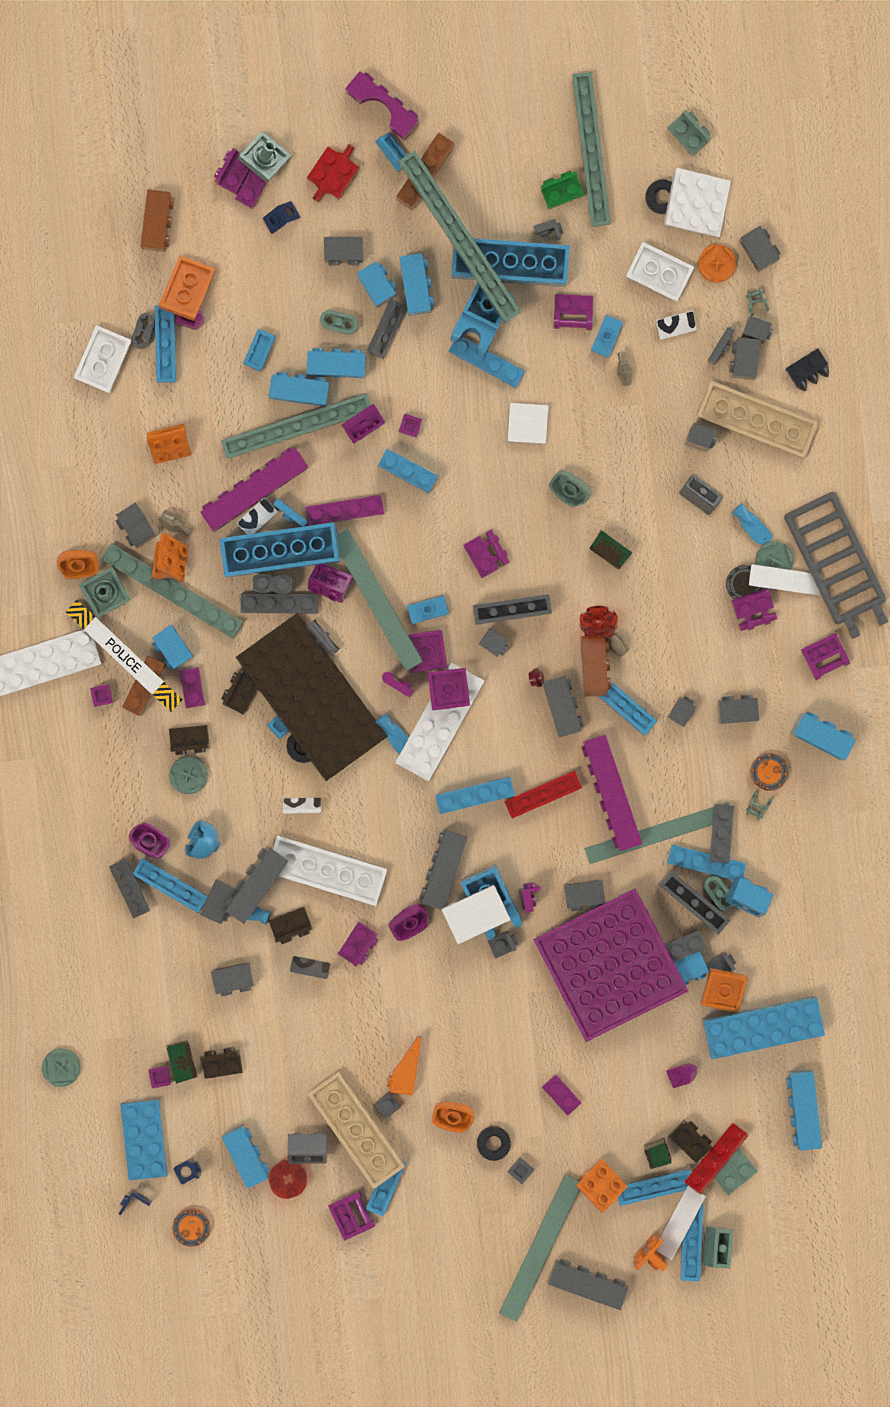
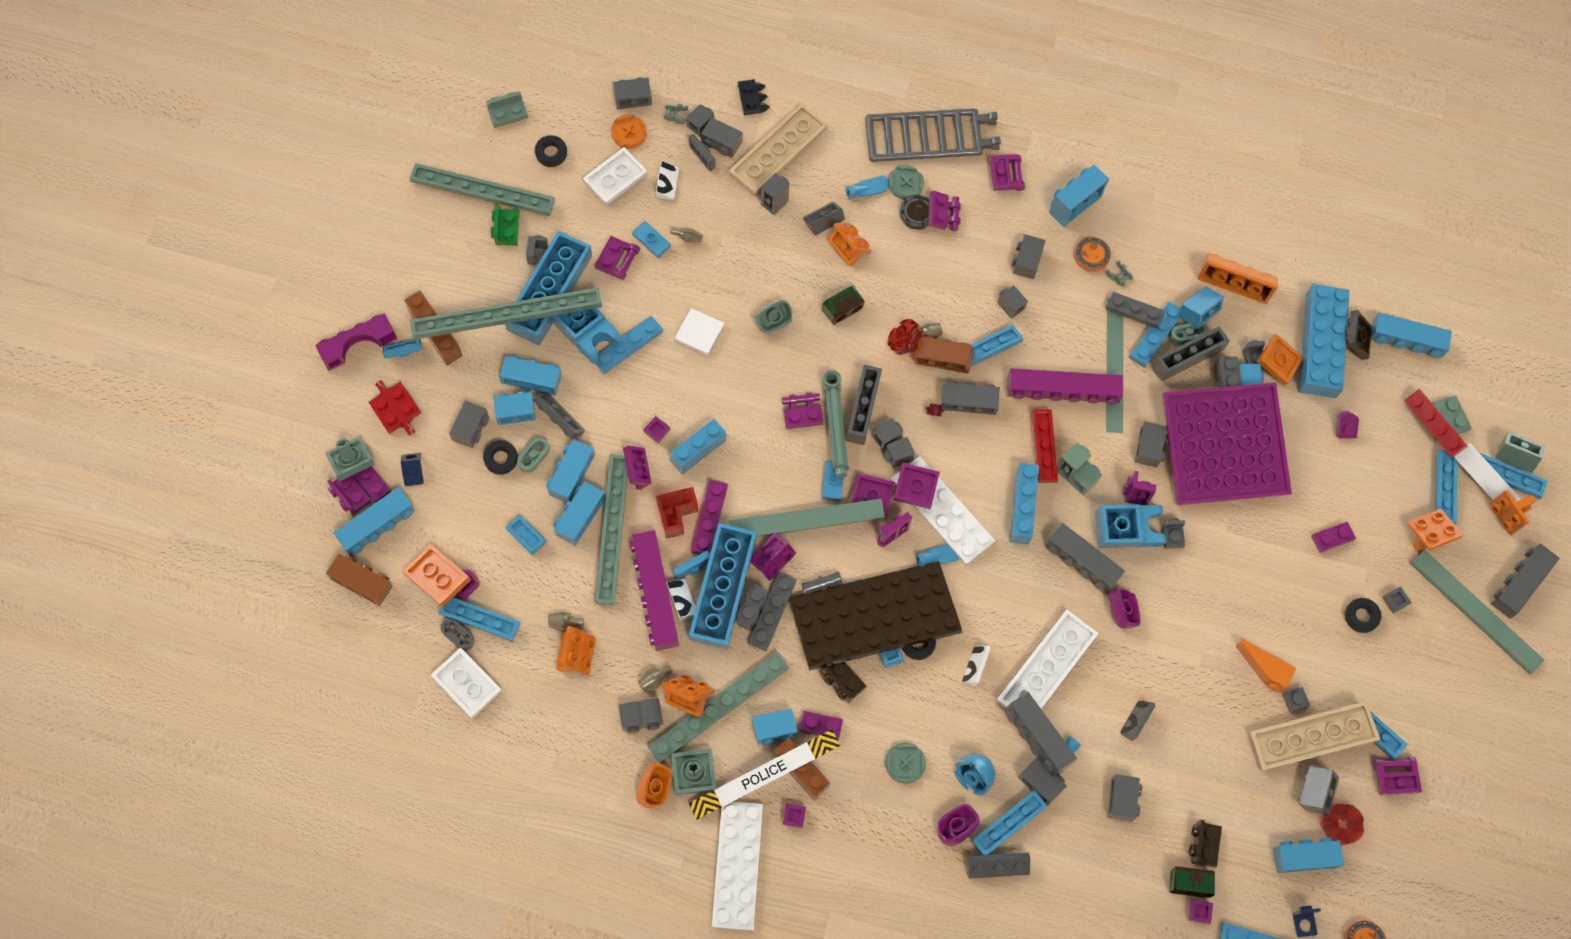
camera: 75 degrees left, 20 degrees down
(188, 739) = (870, 747): dark brown bracket -> none
(192, 420) = (562, 620): none -> dark tan piece
(214, 207) = (374, 521): none -> dark azure brick
(290, 924) = (1090, 722): dark brown bracket -> none
(324, 304) = (494, 447): none -> black tyre
(335, 471) = (672, 507): none -> clear red brick
(357, 944) = (1130, 665): magenta bracket -> none
(453, 1116) = (1327, 640): orange piece -> none
(476, 914) = (1140, 540): white tile -> none
(479, 660) = (899, 452): none -> dark grey brick
(481, 591) = (835, 422): none -> sand green piece
(528, 835) = (1077, 470): none -> sand green brick
(657, 1153) = (1417, 469): dark green piece -> none
(680, 530) = (848, 243): none -> orange bracket
(690, 1141) = (1410, 440): dark brown bracket -> none
(697, 202) = (569, 125): white plate -> none
(781, 1059) = (1359, 334): none -> dark brown plate
(783, 579) = (926, 179): white sticker -> none
(799, 923) = (1238, 278): none -> orange slope

